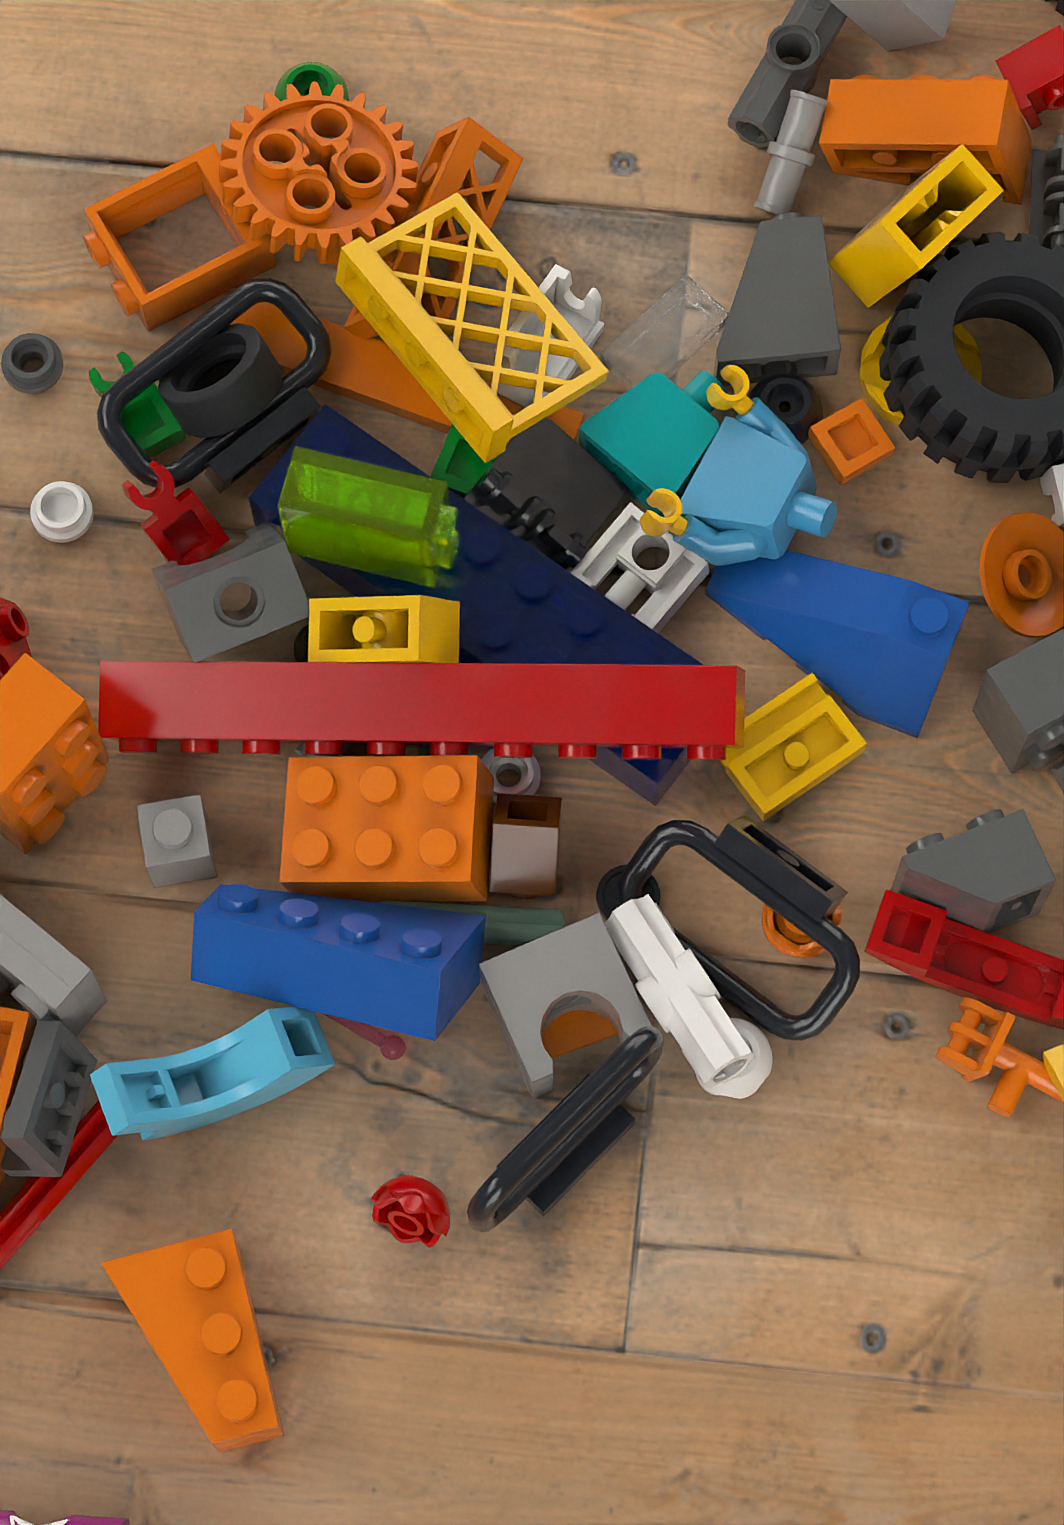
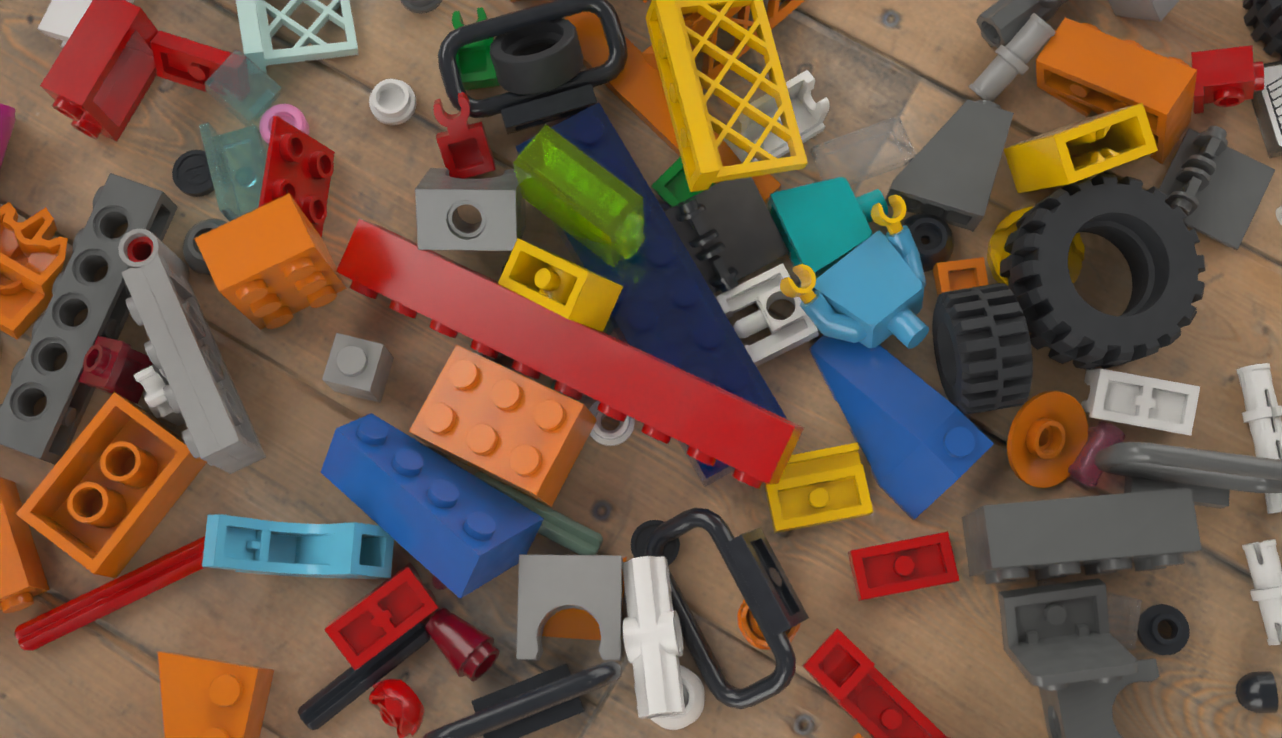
camera: 25 degrees right, 5 degrees up
(46, 1102) = (177, 516): dark grey bracket -> none
(345, 1112) = (381, 616): none -> red hinge
(352, 1194) = (355, 682): none -> black axle
(455, 1106) = (462, 644): none -> dark red cone
(525, 845) = (595, 479): reddish brown brick -> none
(906, 500) = (982, 348): none -> black tyre
(929, 791) = (903, 566): none -> red plate
(982, 875) = (911, 652): dark grey slope -> none

